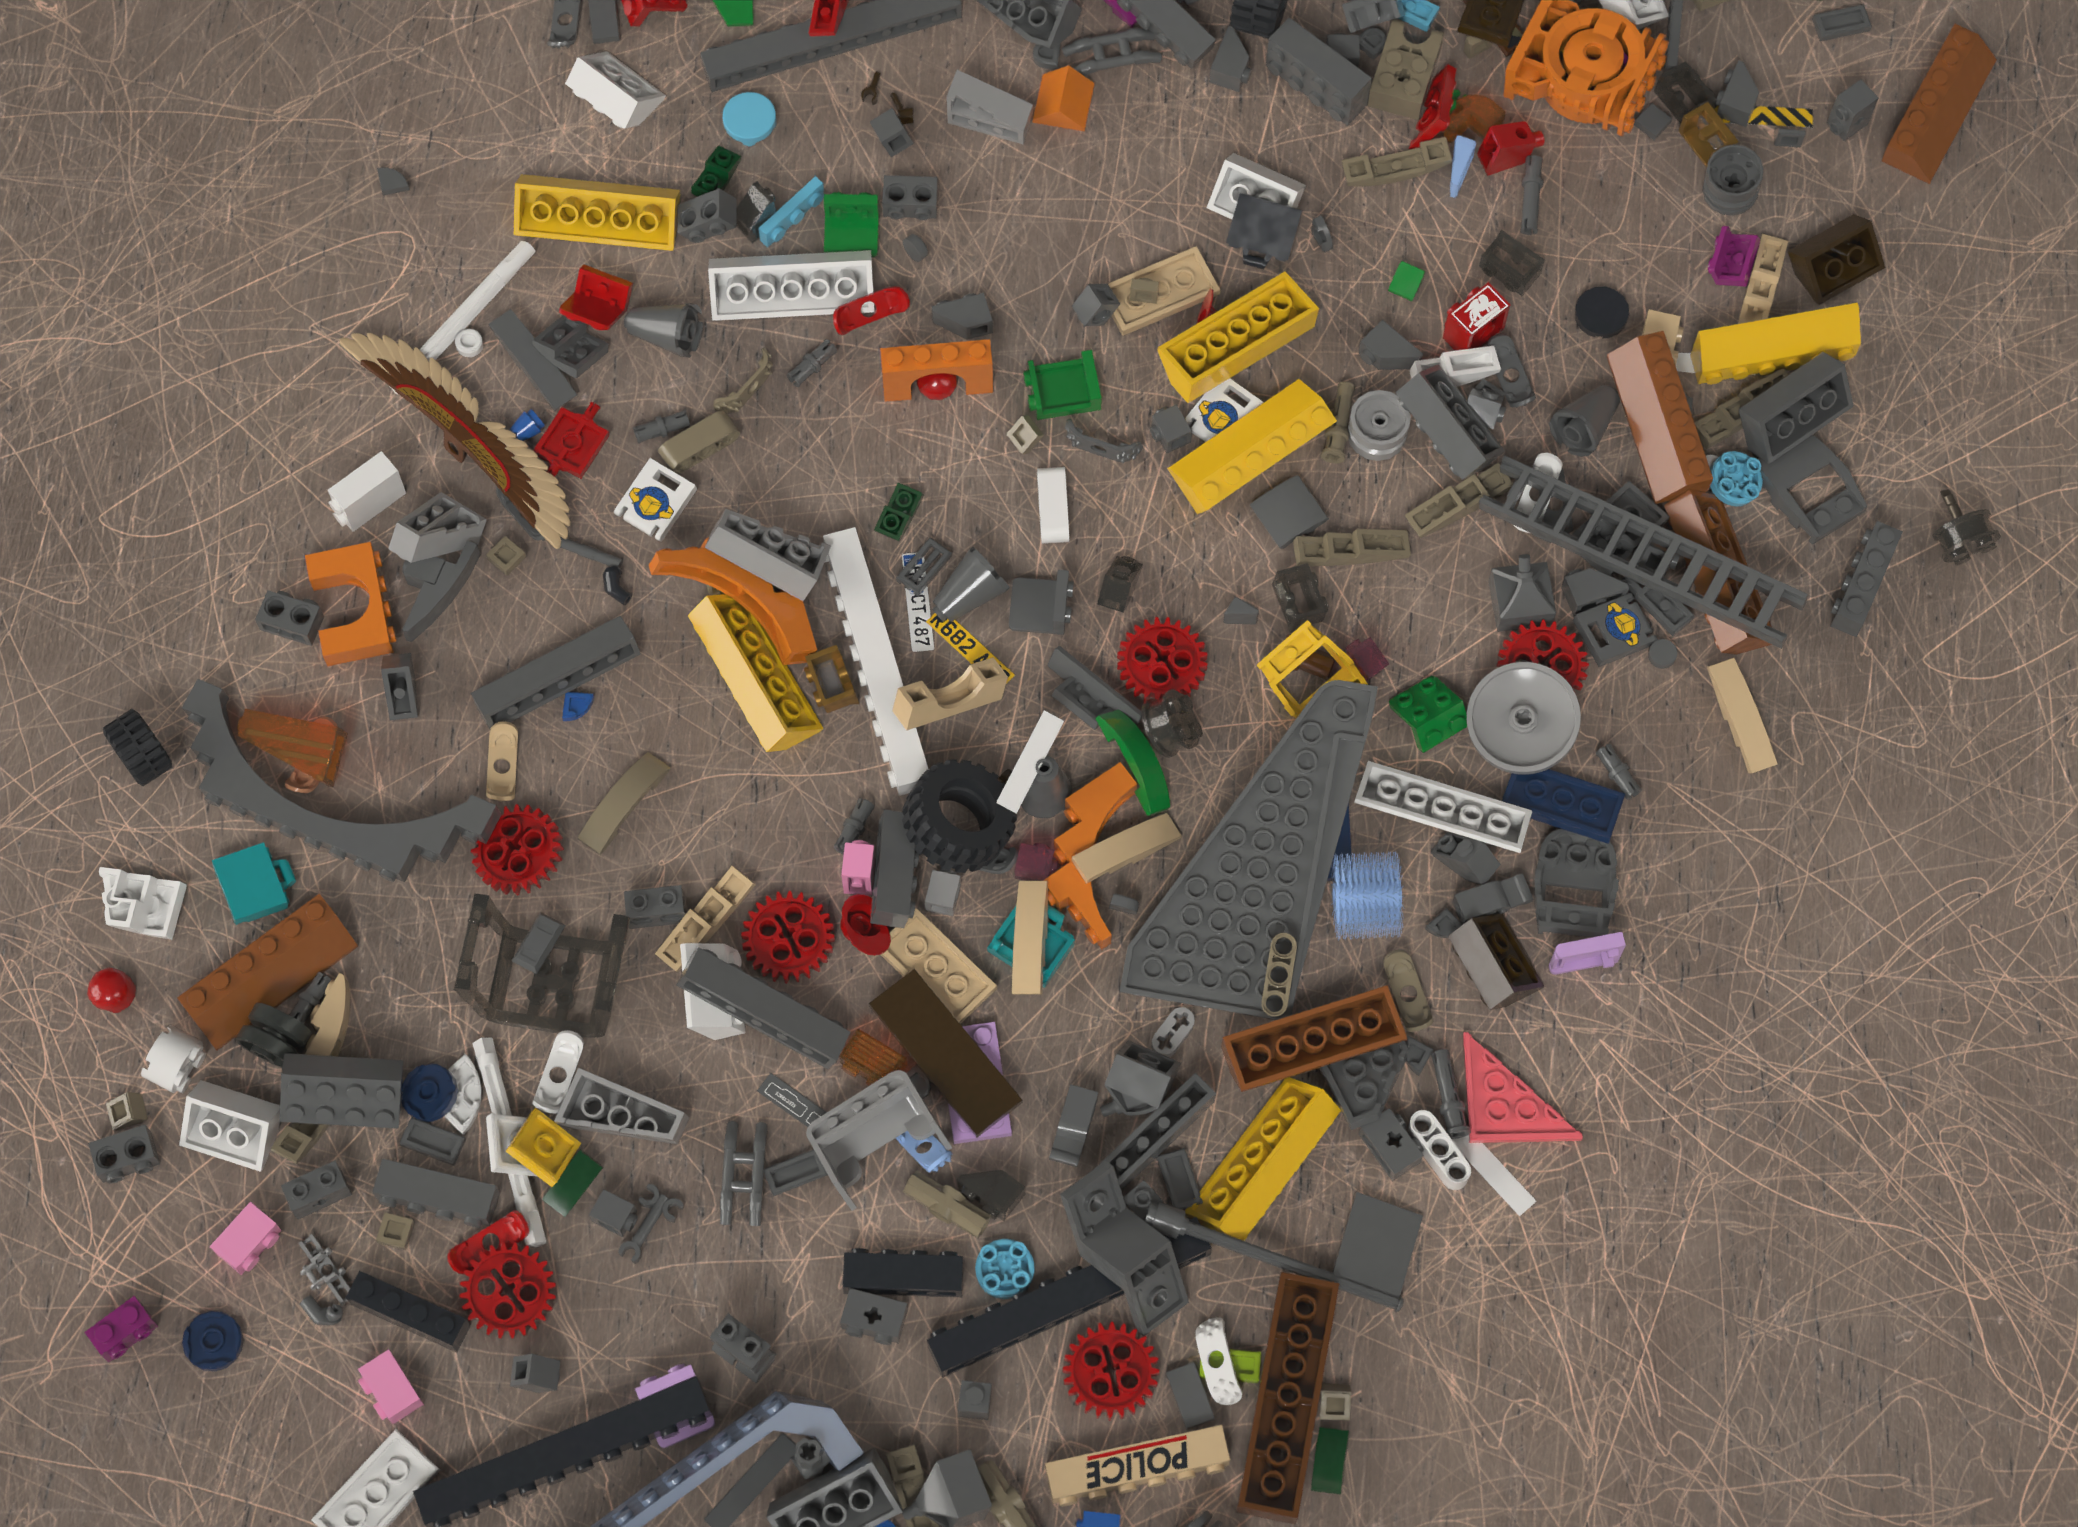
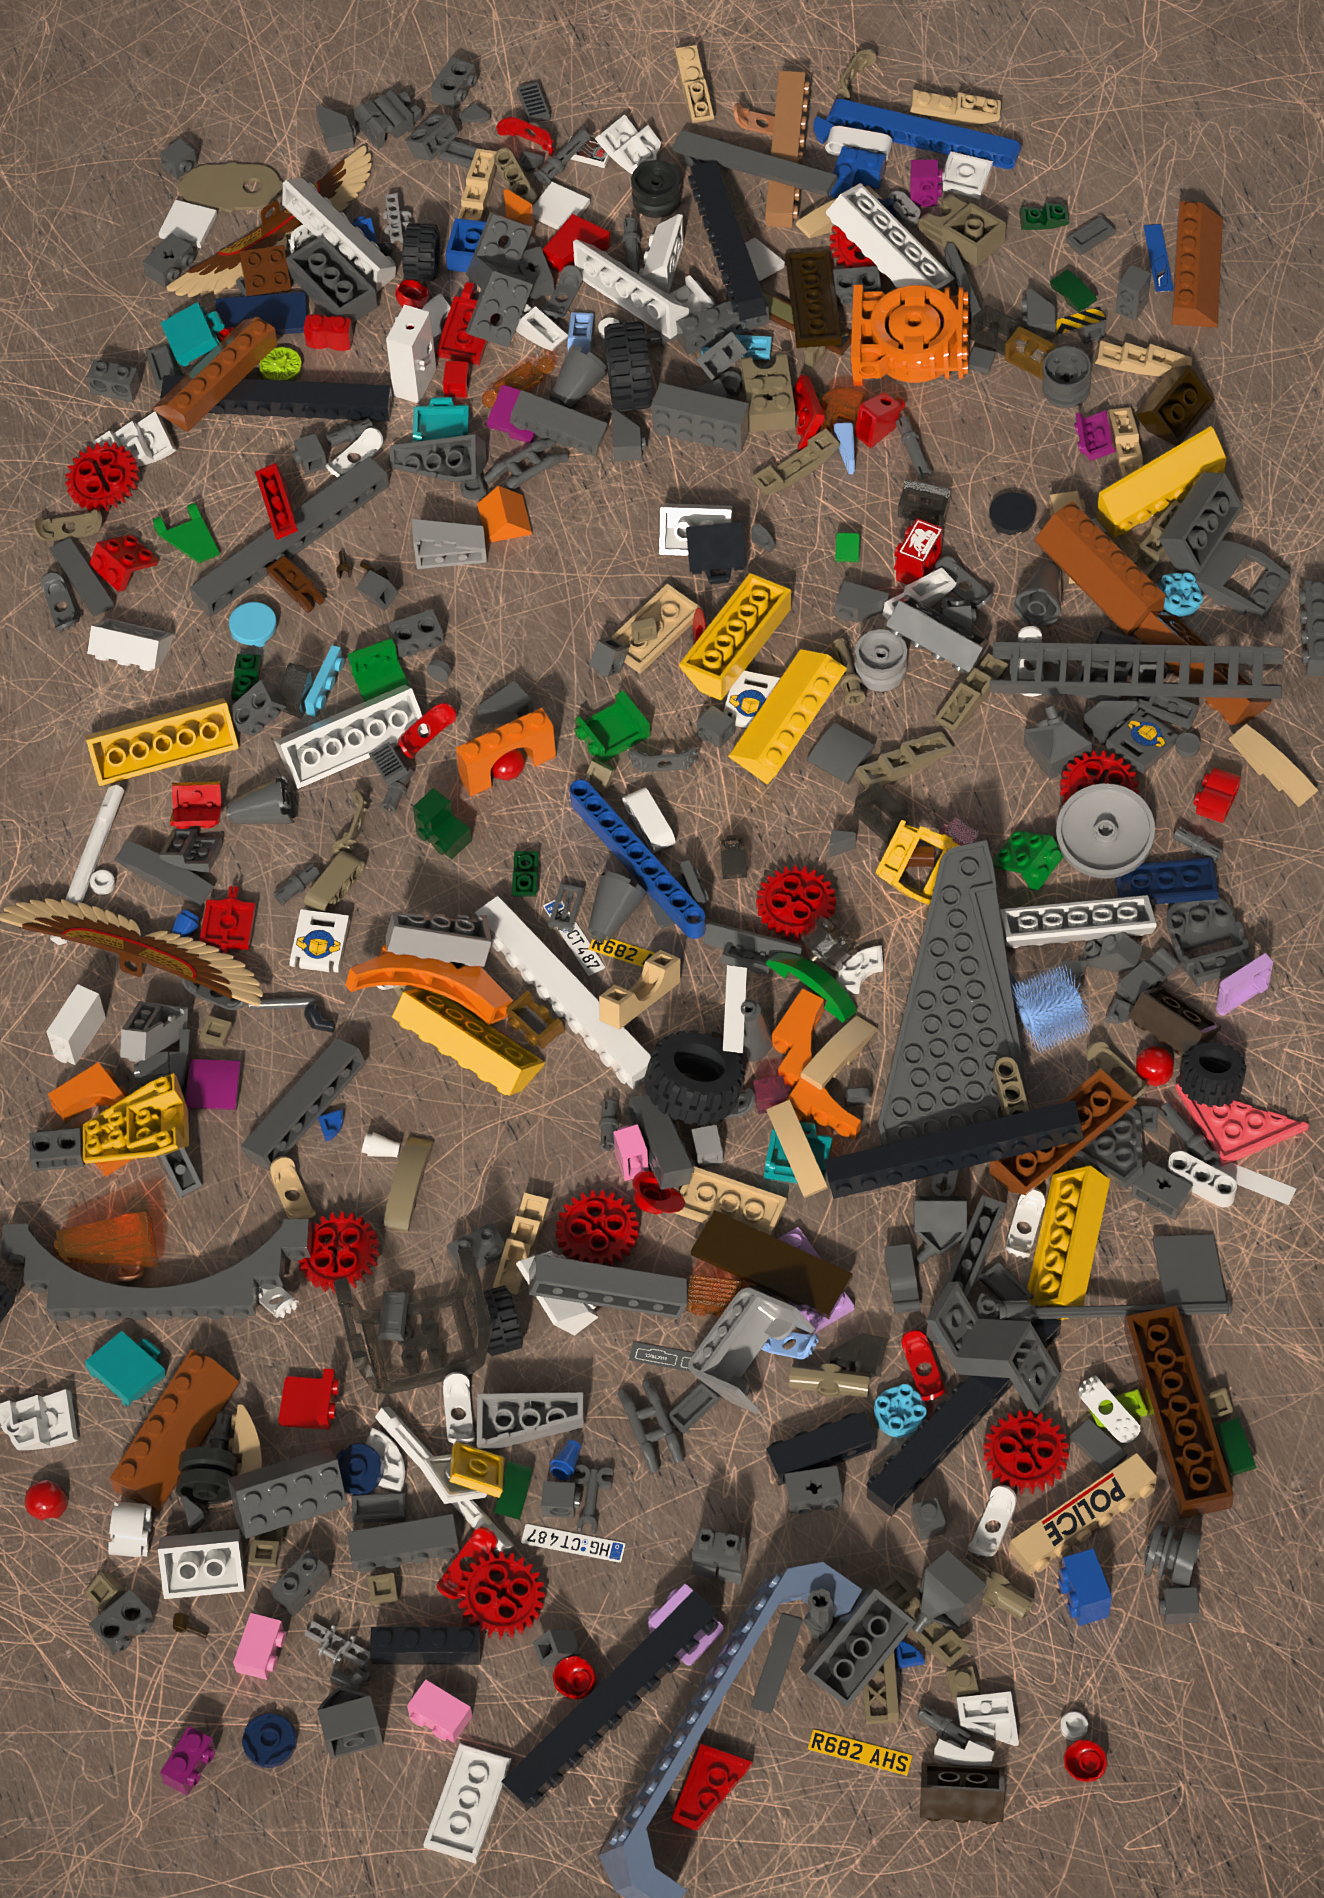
camera: 20 degrees left, 10 degrees down
(182, 1179) = (181, 1625): none -> dark brown hand
(244, 1070) = (194, 1514): none -> dark grey slope
(292, 1358) = (349, 1720): none -> dark grey piece
(375, 632) = (140, 1125): none -> yellow wedge
(414, 998) = (309, 1401): none -> red bracket
(430, 887) = (266, 1297): none -> white piece
(477, 612) = (213, 1084): none -> magenta slope
(538, 1412) = (574, 1677): none -> red hair
(609, 1264) = (573, 1543): none -> white sticker
(612, 751) = (380, 1146): none -> white cone
(637, 996) = (506, 1331): none -> black tyre
(639, 1175) = (565, 1461): none -> blue cone
(812, 88) = (294, 583): none -> reddish brown hinge
(814, 331) = (388, 763): none -> dark grey tile
(832, 419) = (439, 826): none -> dark green brick
(1019, 555) = (613, 833): none -> blue beam
(1049, 1255) = (917, 1352): none -> red piece
(1055, 1419) = (1000, 1508): none -> white piece
(1190, 1011) = (953, 1149): none -> black brick
(1194, 761) = (859, 968): none -> white tile
(1242, 1106) = (1028, 1210): none -> white piece
(1416, 859) = (1076, 967): none -> dark grey tile
(1451, 1001) = (1155, 1065): none -> red hair
(1518, 1026) = (1212, 1074): none -> black tyre
(1665, 725) = (1217, 795): none -> red brick
(1791, 81) = (1074, 291): none -> dark green slope
(1826, 191) = (1135, 359): none -> tan slope
(1904, 77) = (1158, 258): none -> blue sticker

